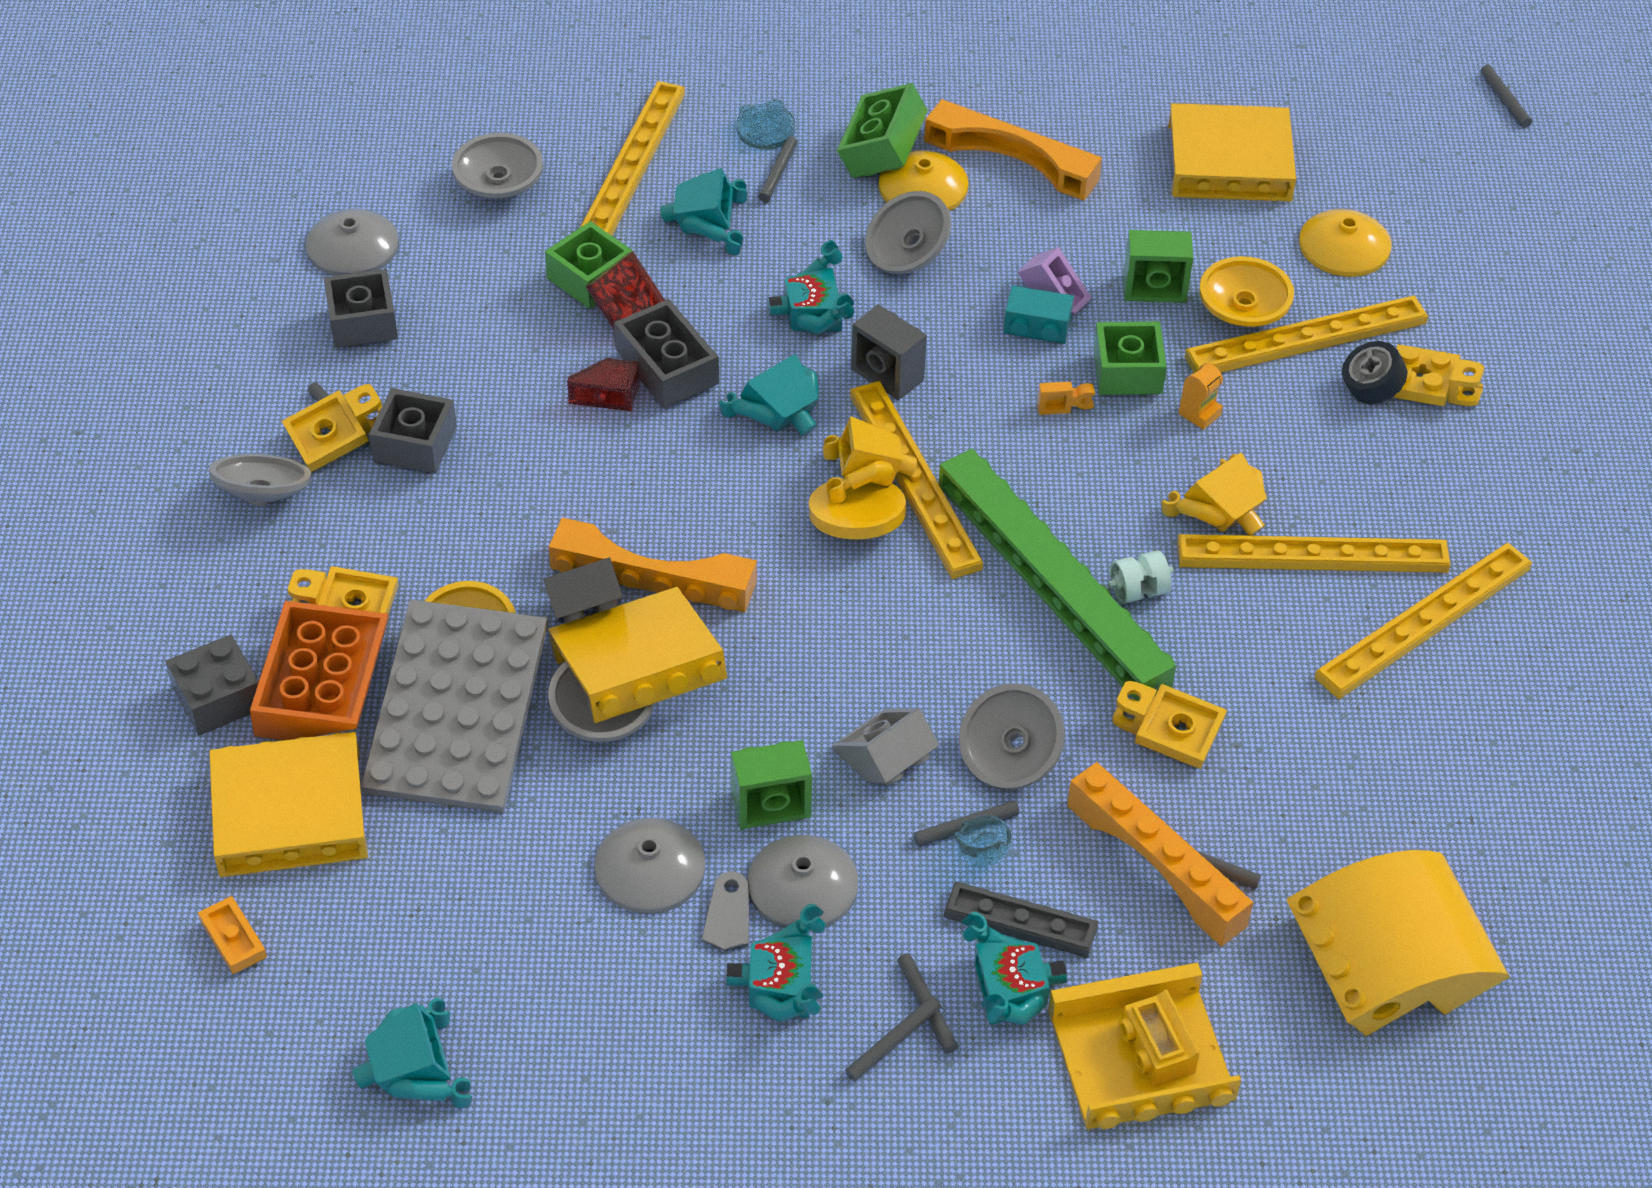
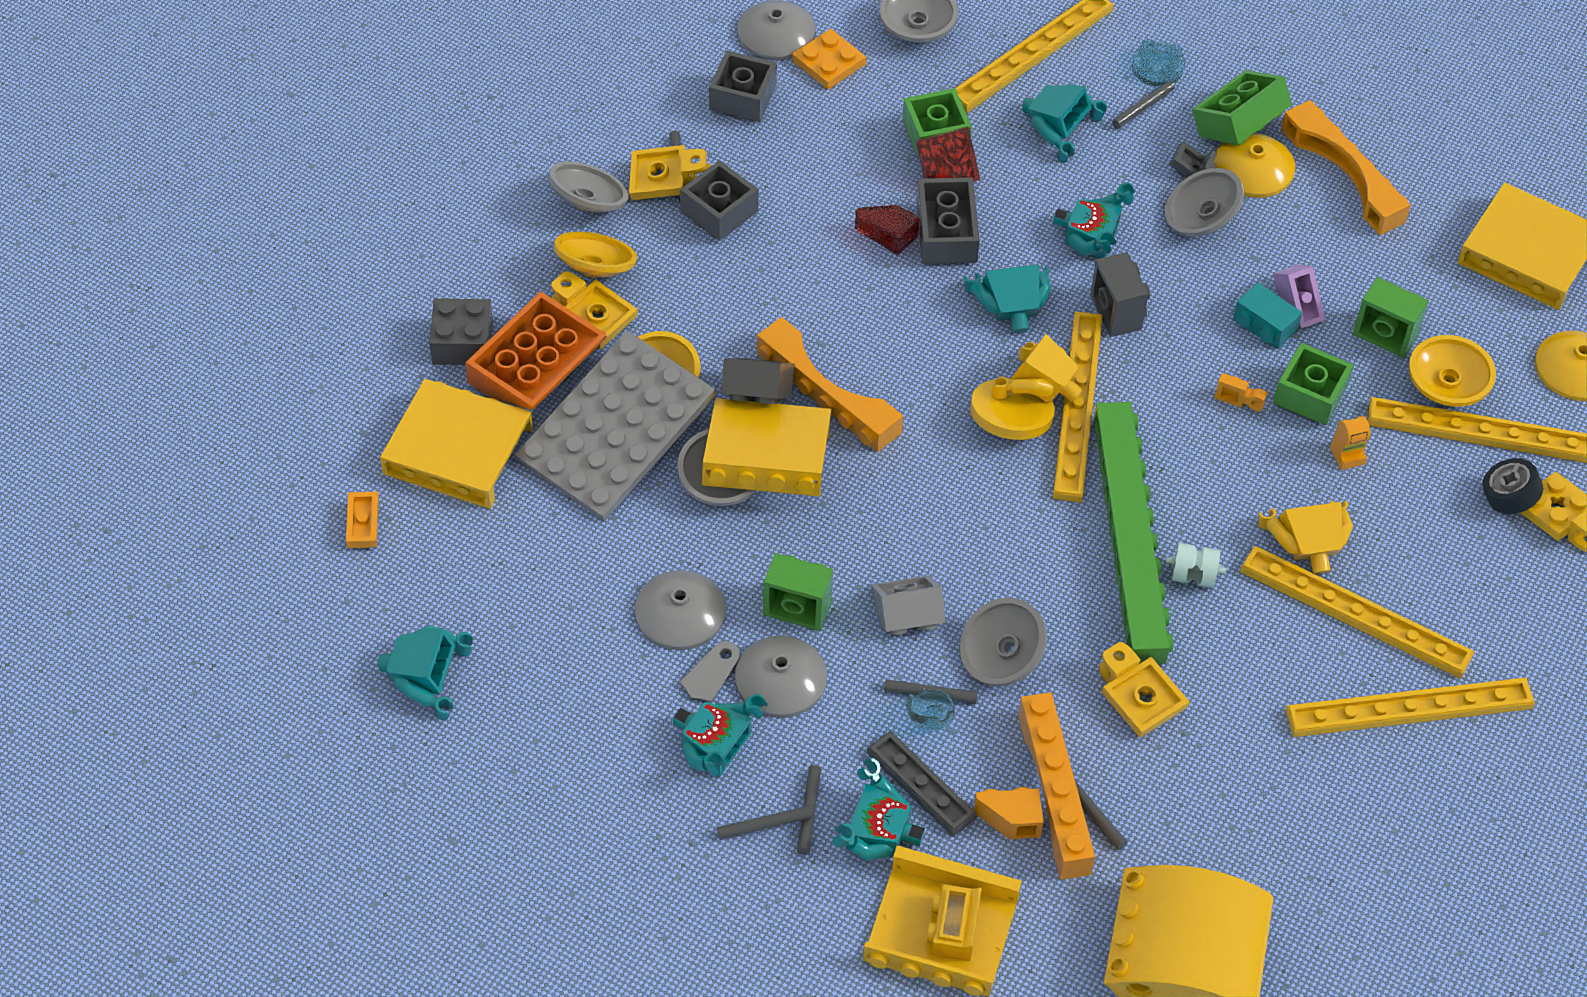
camera: 30 degrees right, 5 degrees up
(314, 541) = (594, 254): none -> yellow dish
(429, 249) = (829, 59): none -> light orange plate
(865, 203) = (1190, 161): none -> dark grey bracket
(1135, 901) = (1011, 812): none -> light orange slope

